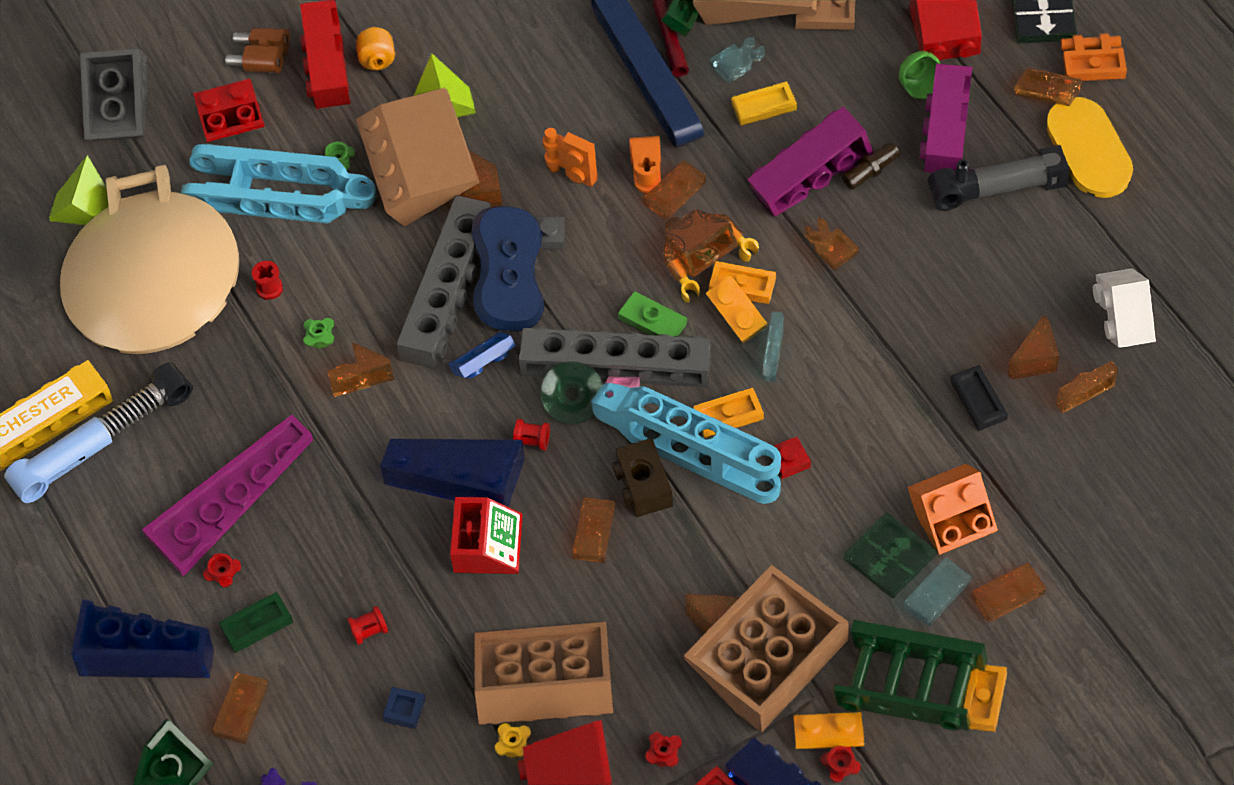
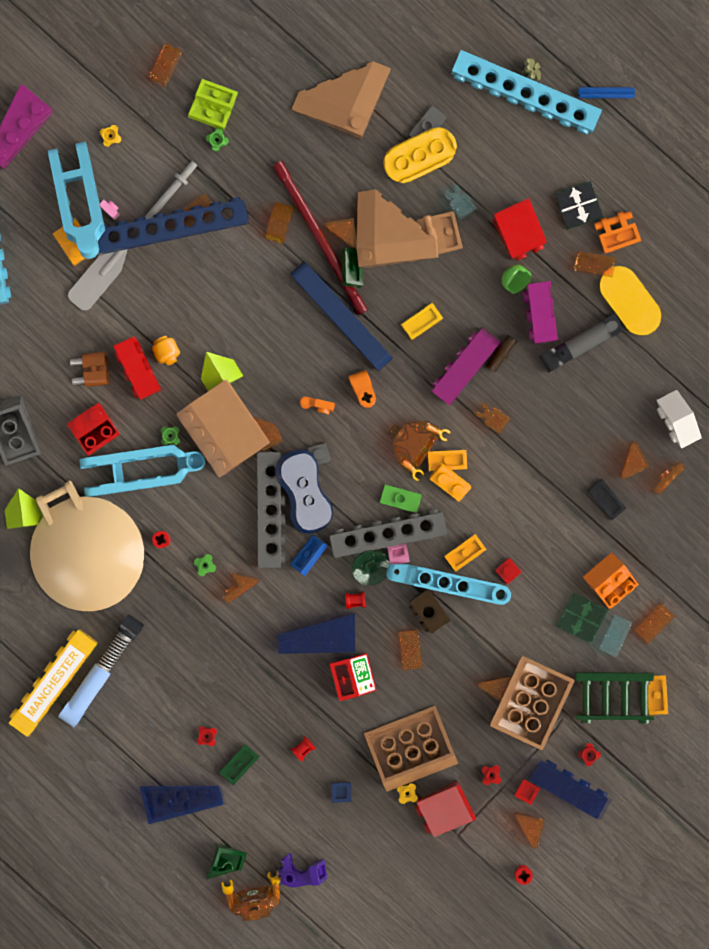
camera: 20 degrees left, 30 degrees up
(208, 511) = (186, 701): magenta wing -> none
(240, 708) = (250, 818): clear orange plate -> none
(674, 190) = (386, 402): clear orange plate -> none
(736, 61) = (393, 294): clear light blue plate -> none
(773, 346) = (479, 502): clear light blue tile -> none
(828, 730) = (577, 738): light orange plate -> none

